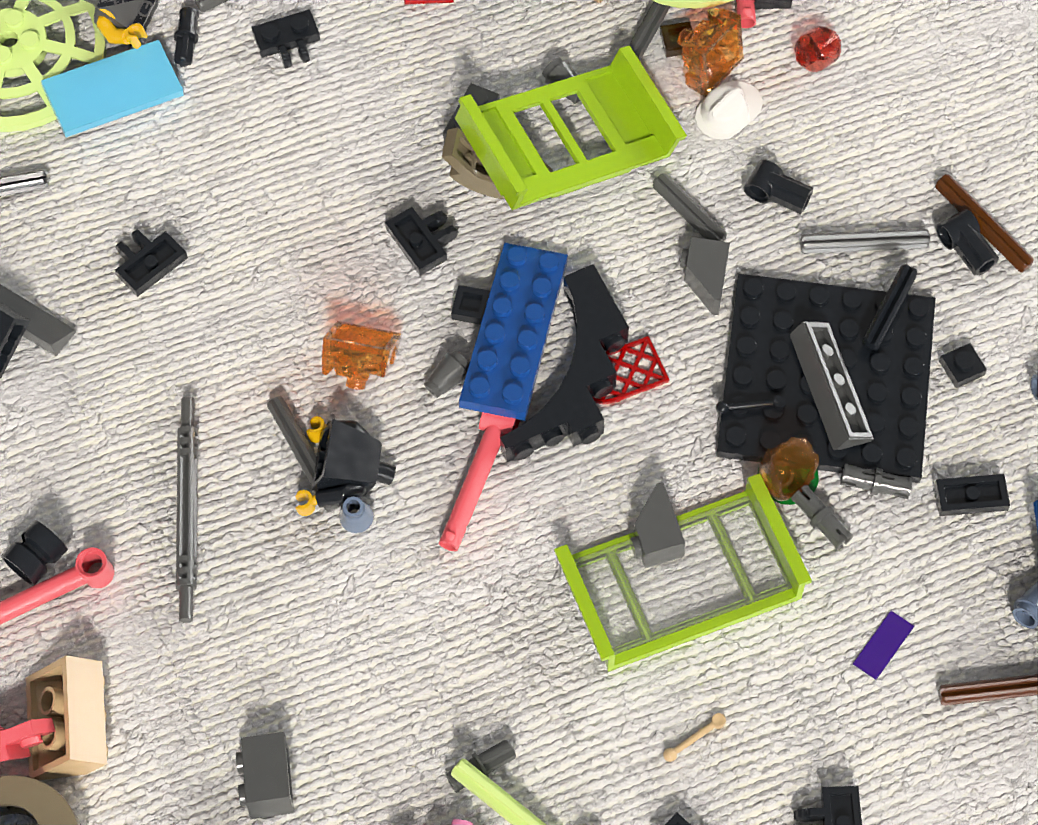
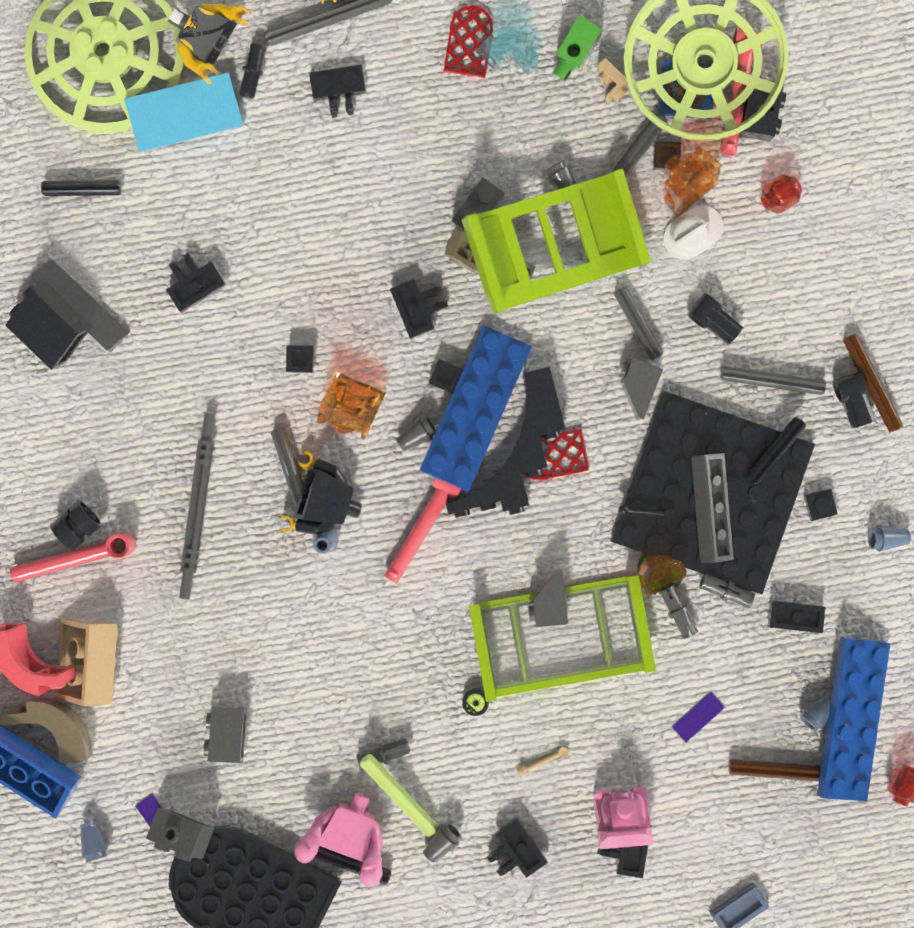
camera: 10 degrees right, 25 degrees up
(289, 318) = (299, 359): none -> black plate
(588, 678) = (475, 702): none -> tile
(816, 778) = (622, 818): none -> bright pink brick

